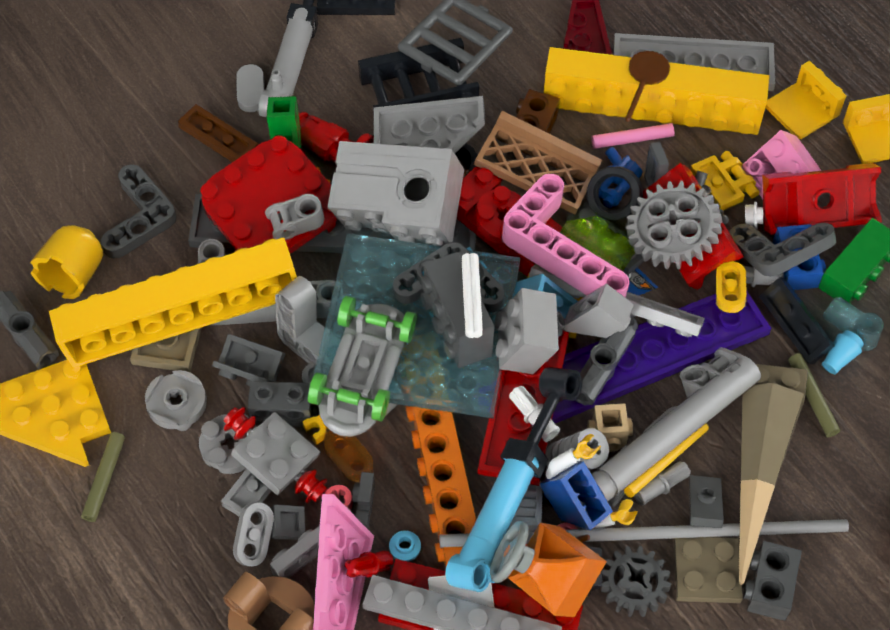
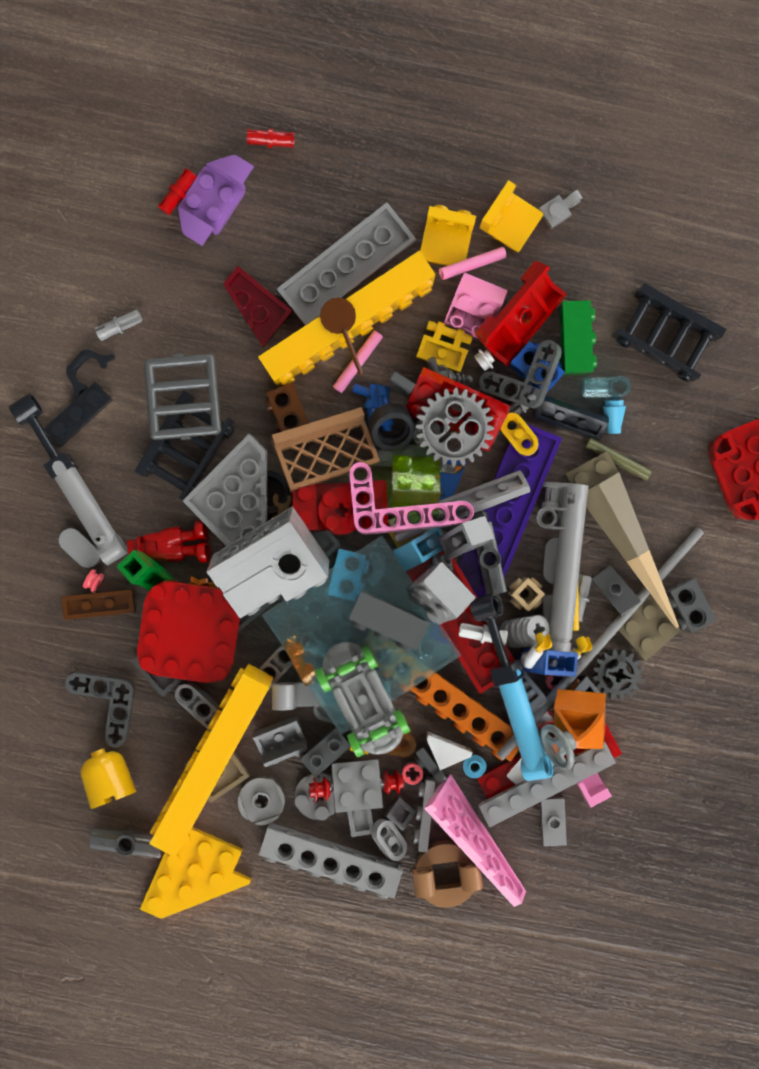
camera: 45 degrees left, 30 degrees up
(103, 477) = (268, 880): olive piece -> none
(151, 440) = (344, 856): none -> light grey brick
(234, 114) = (93, 580): none -> coral bush
(293, 216) = (221, 641): light grey piece -> none
(344, 278) = (305, 670): none -> clear orange plate
(369, 564) = (470, 801): red axle -> none
(391, 505) = (447, 751): none -> white slope
(407, 279) = (355, 582): dark grey beam -> none
(472, 295) = (400, 617): white axle -> none
(812, 137) = (472, 263): none -> bright pink piece

